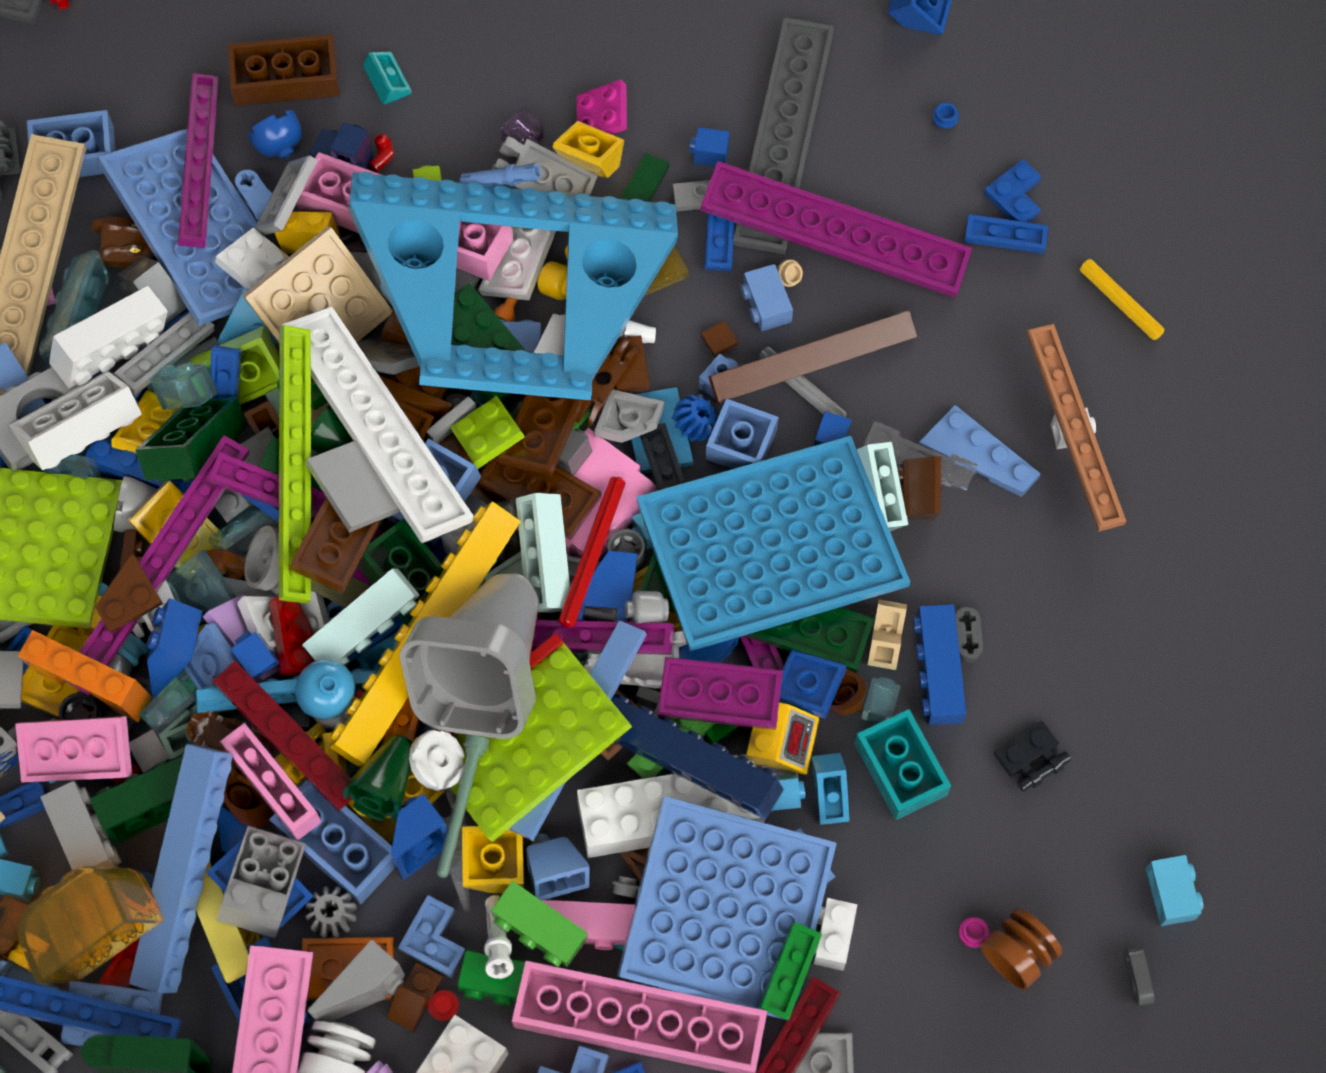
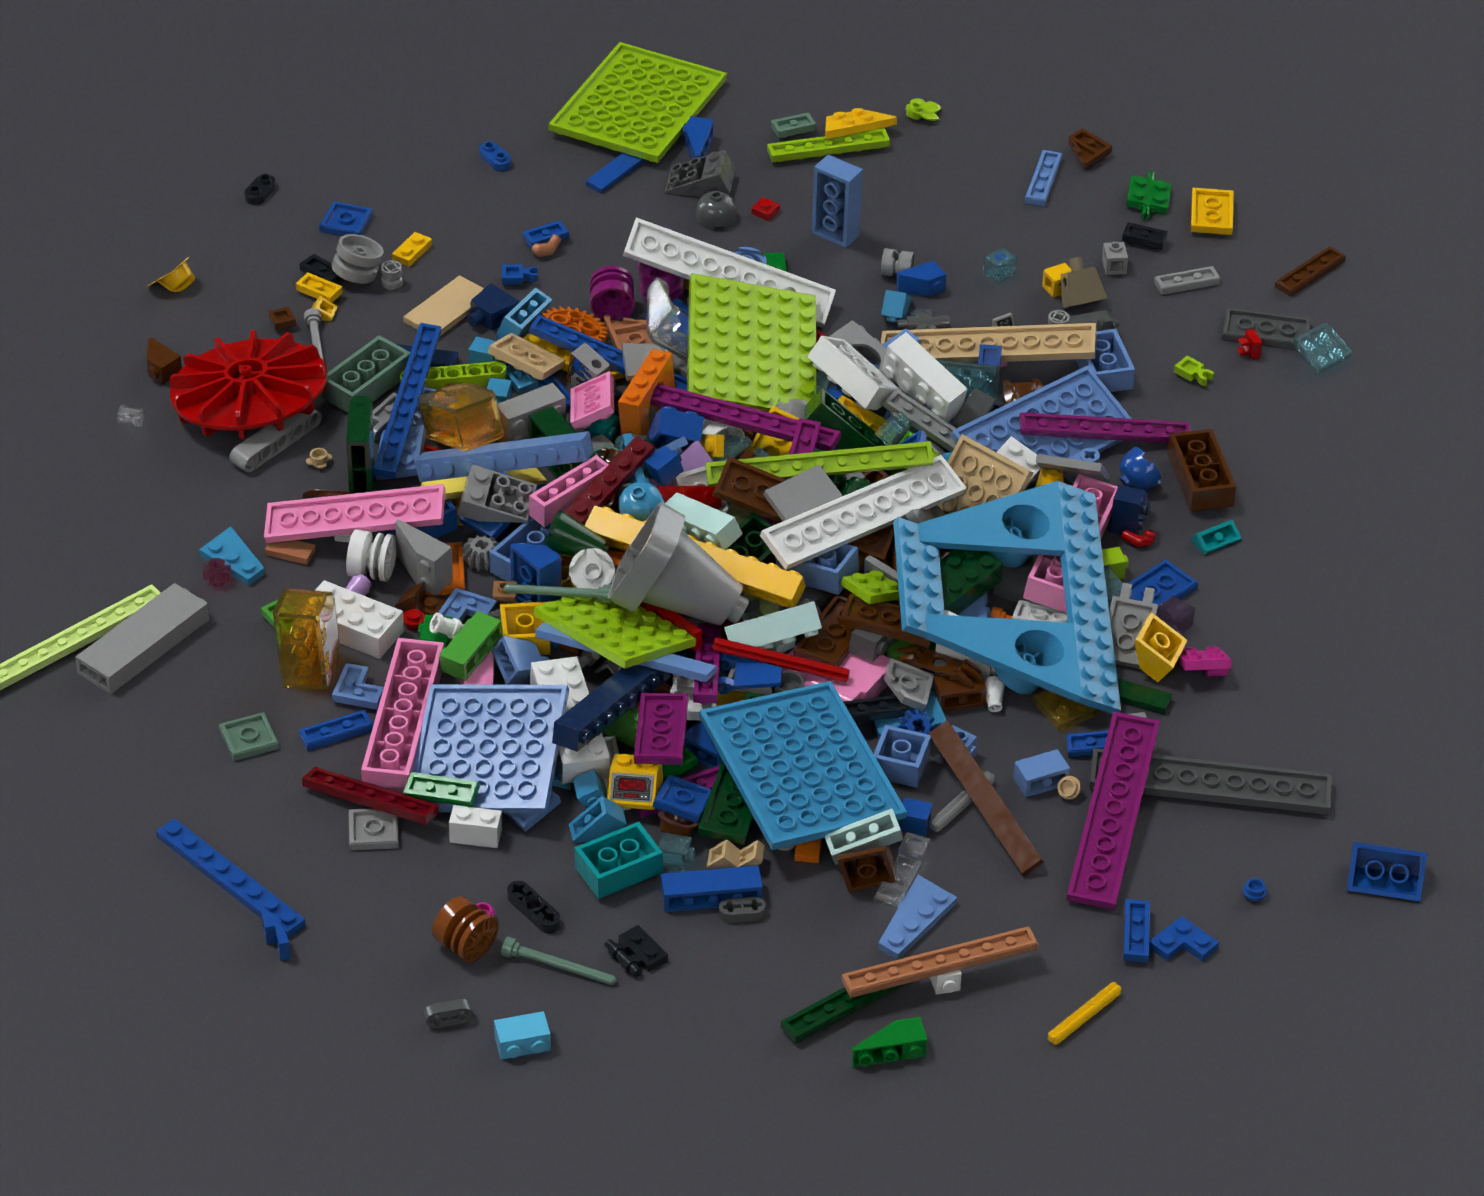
camera: 85 degrees right, 25 degrees down
(60, 263) = (990, 355): none -> blue plate
(93, 60) = (1192, 369): none -> lime plate
(127, 597) = (705, 399): reddish brown wing -> none
(205, 595) = (713, 444): none -> yellow plate
(422, 883) = (501, 596): none -> medium nougat bracket
(464, 142) = (1166, 581): none -> blue tile
(510, 175) = (1114, 588): medium blue pin -> none
(647, 607) = (731, 688): light grey head -> none
(710, 146) = (1185, 733): blue brick -> none
(719, 339) = (998, 749): reddish brown tile -> none
(938, 877) = (536, 916): none -> black beam
(1030, 898) = (512, 947): none -> sand green piece
(1116, 541) = (828, 1012): none -> dark green plate
(1172, 486) = (895, 1042): none -> green slope

